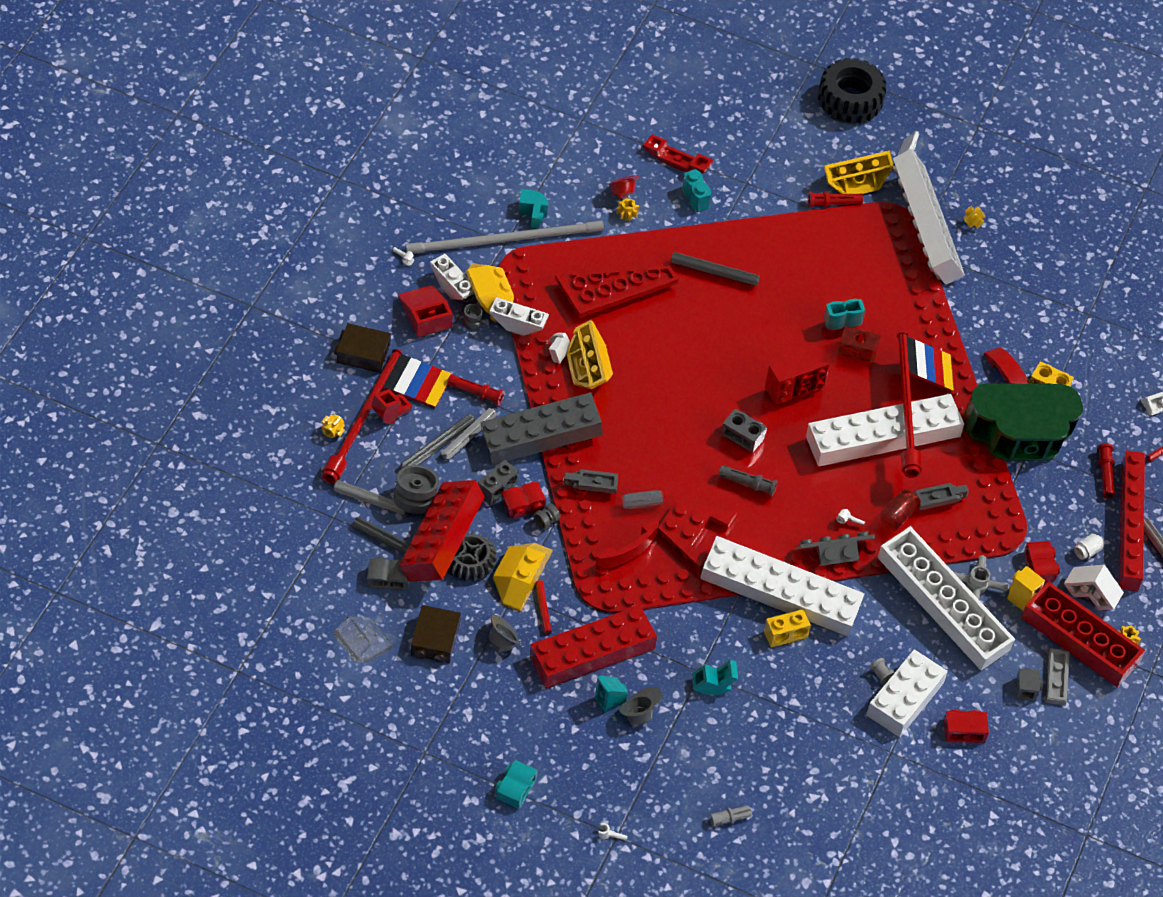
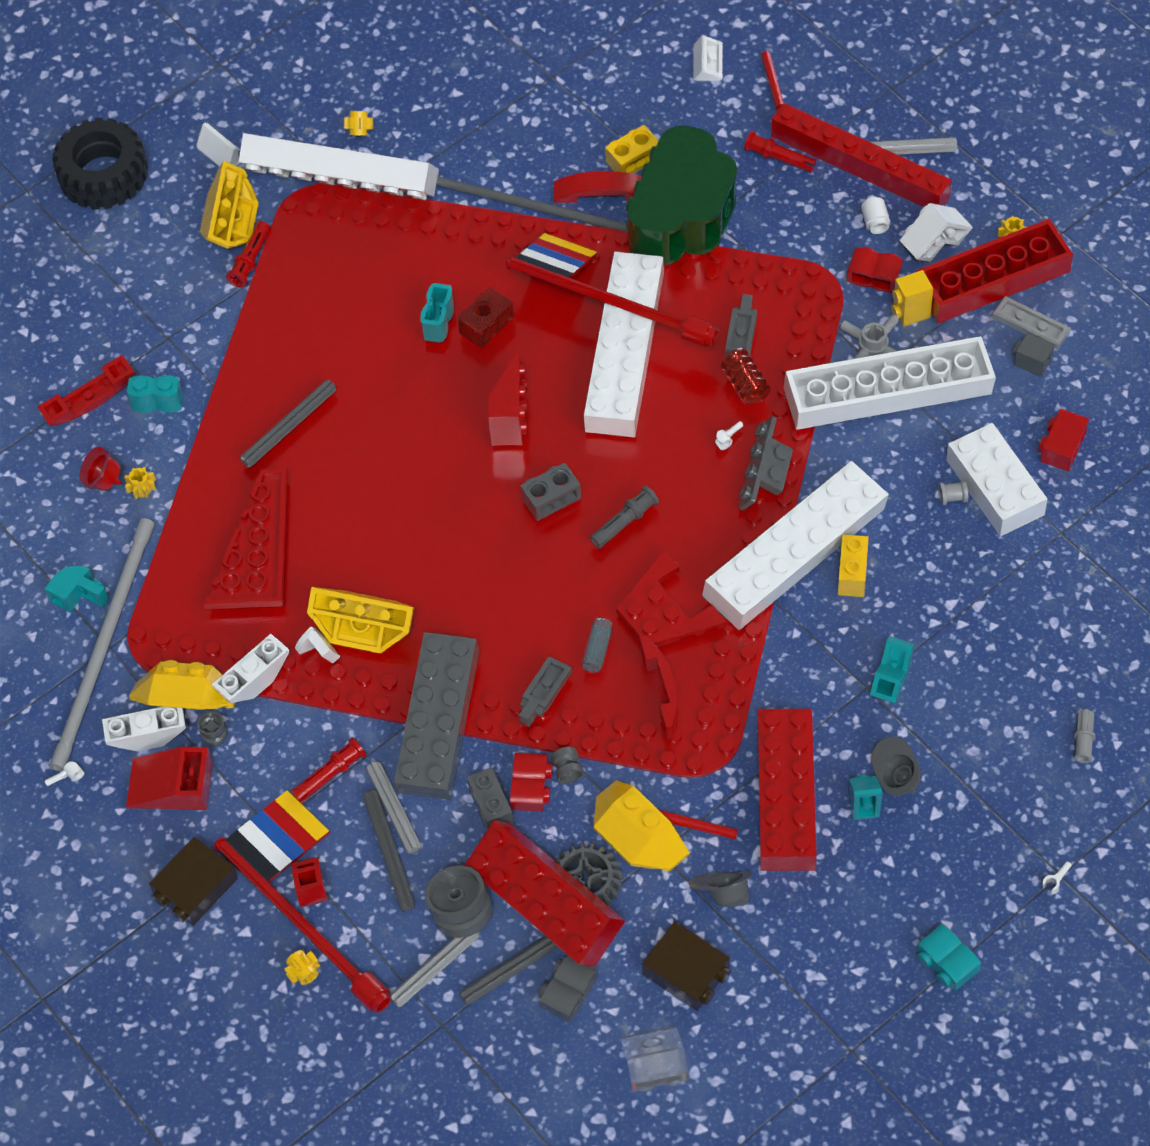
camera: 55 degrees left, 5 degrees up
(970, 331) = (531, 204): none -> dark grey piece

